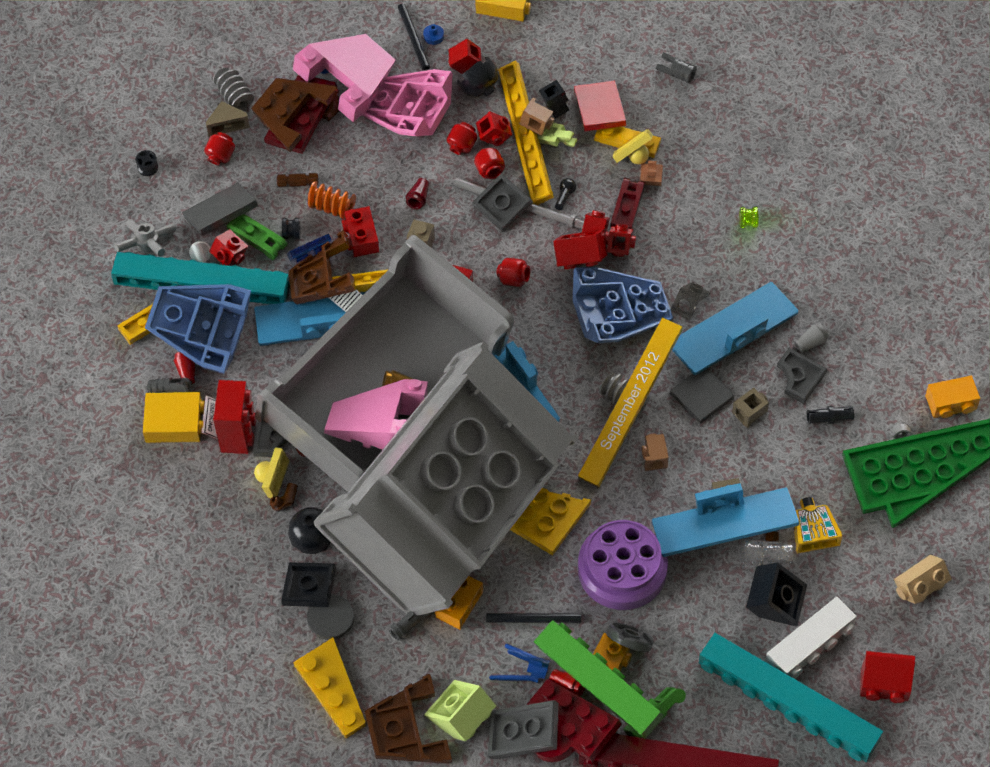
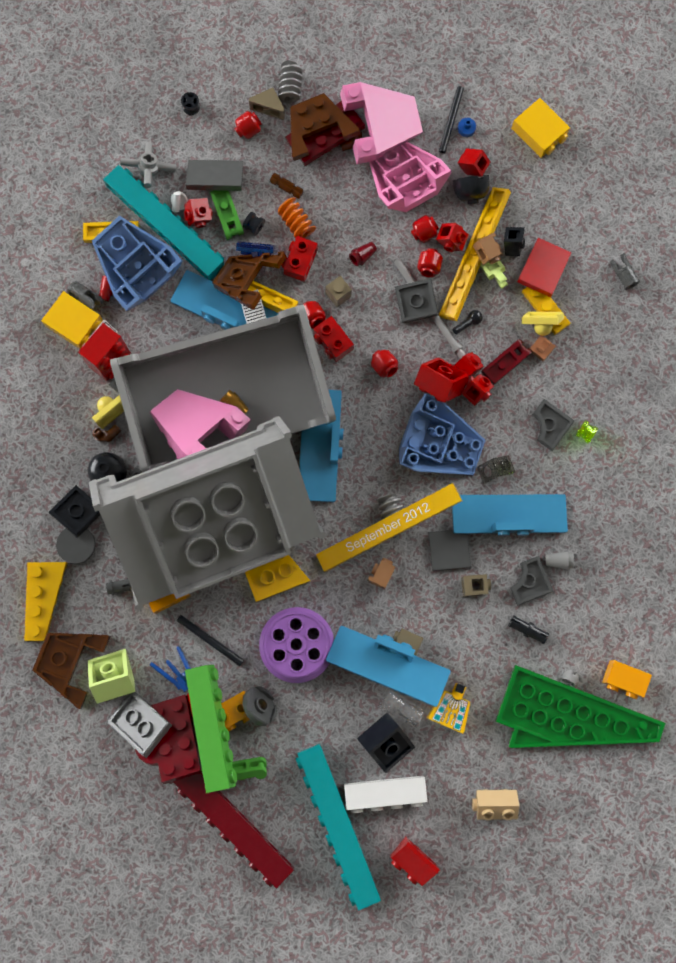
camera: 30 degrees right, 20 degrees up
(712, 231) = (552, 424): none -> dark grey tile

